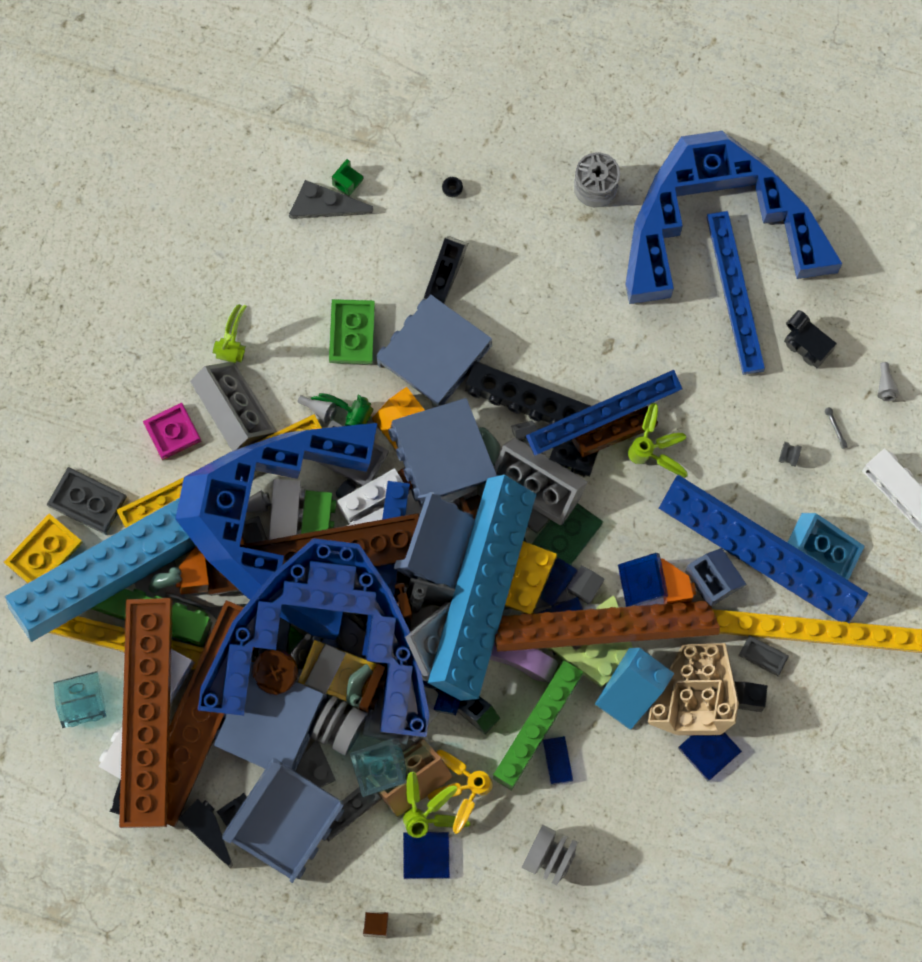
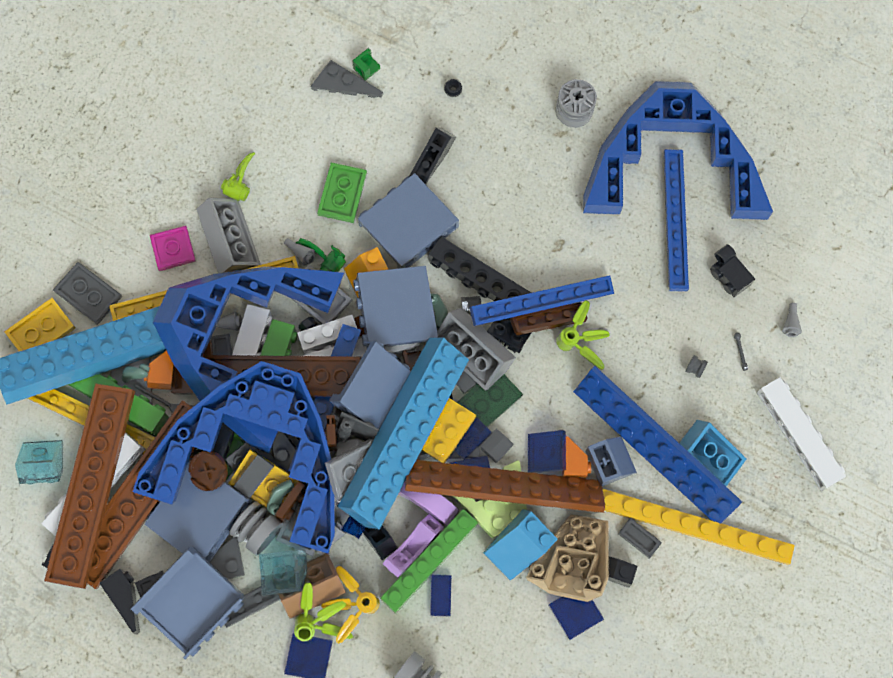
camera: 10 degrees right, 0 degrees up
(517, 711) = (413, 546): none -> lavender arch

